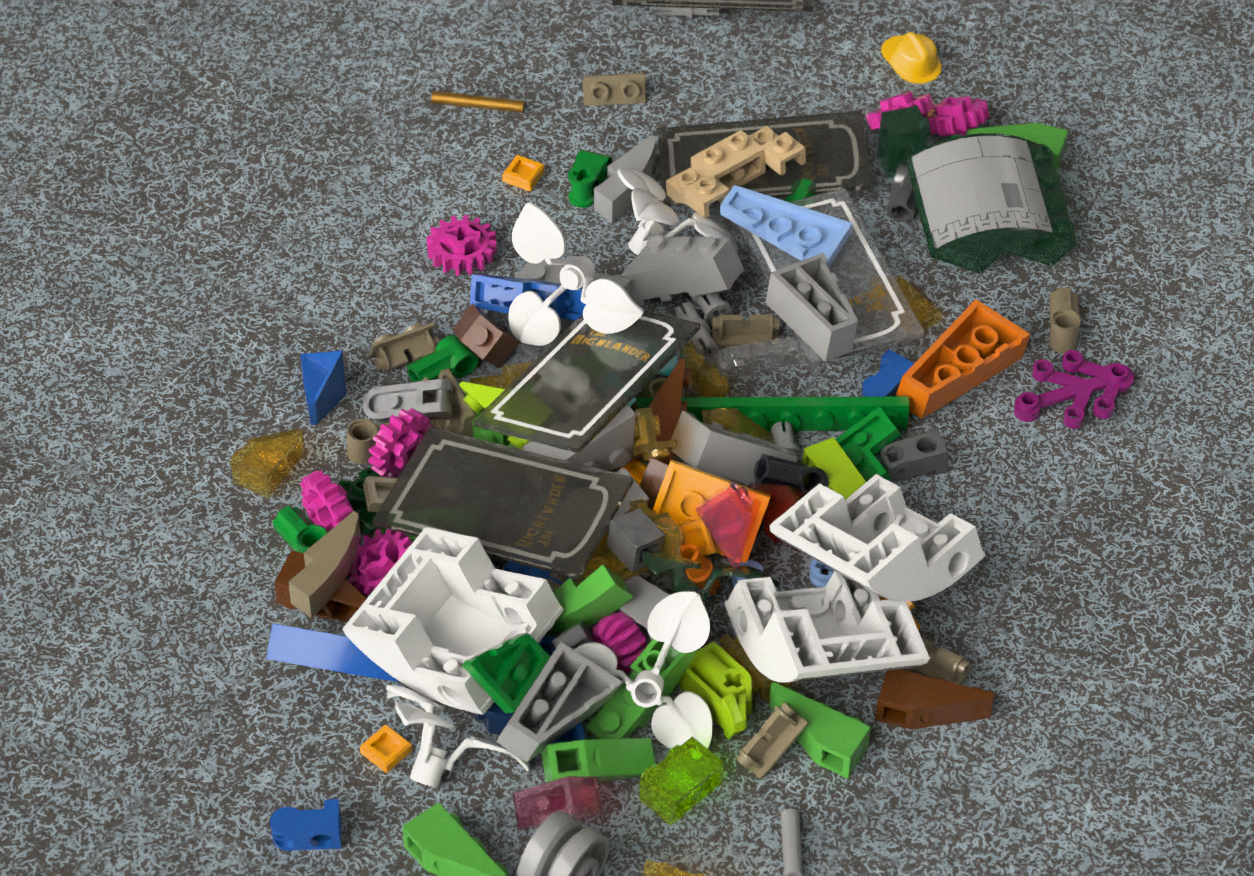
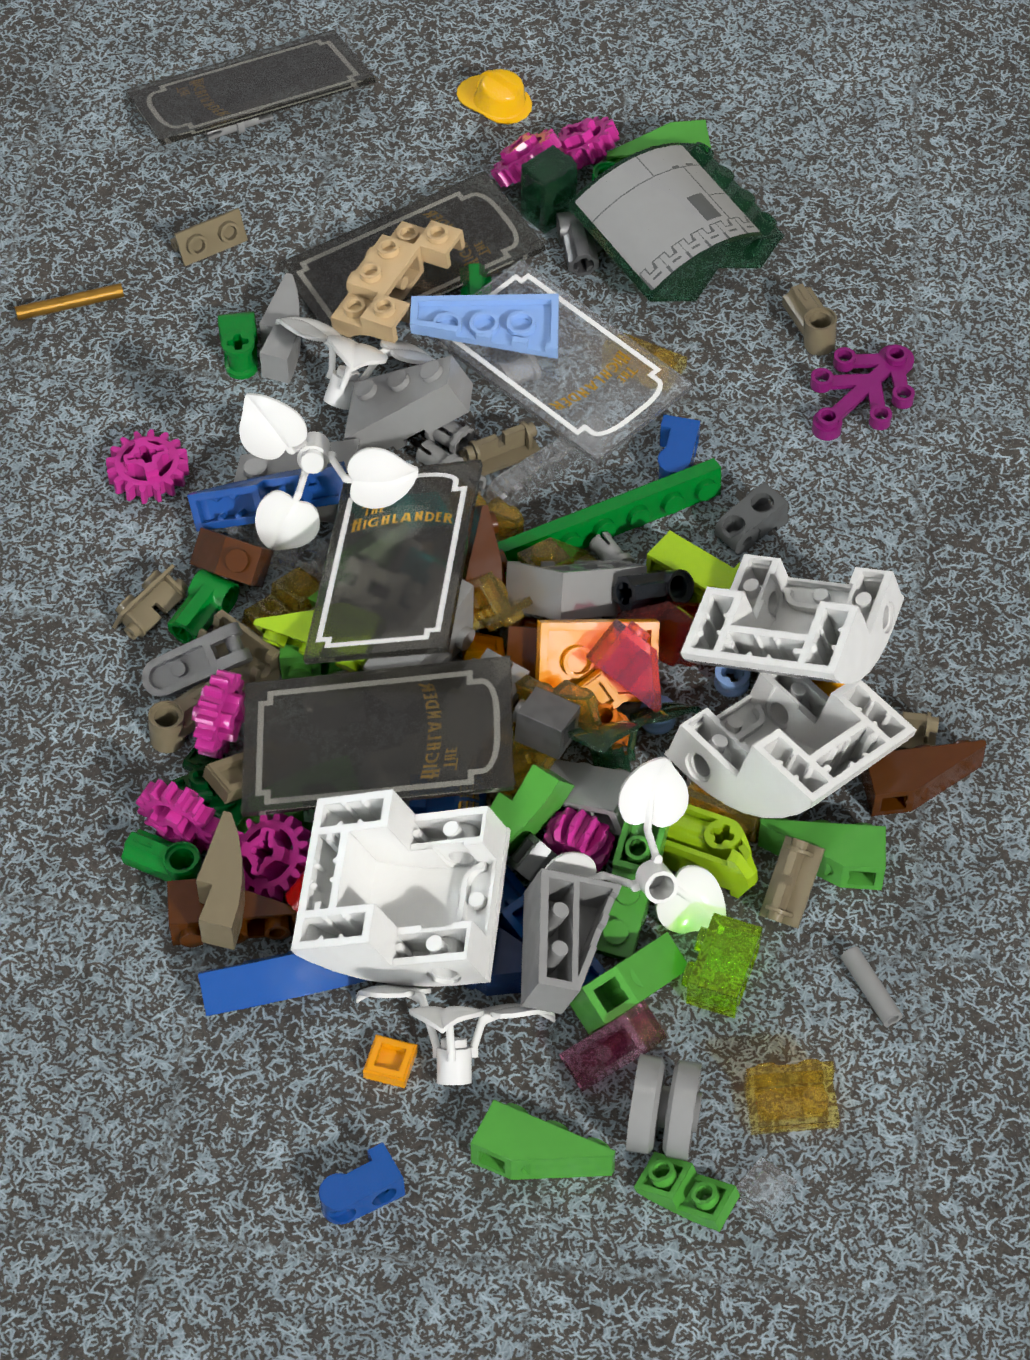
camera: 25 degrees left, 5 degrees up
(267, 461) = (73, 791): clear yellow slope -> none
(323, 382) = (84, 676): blue slope -> none
(508, 670) = (500, 922): green wing -> none
(523, 173) = (164, 362): light orange tile -> none
(813, 306) = (576, 398): light grey wedge -> none
(866, 440) = (698, 517): green plate -> none
(963, 357) = (741, 395): orange wedge -> none

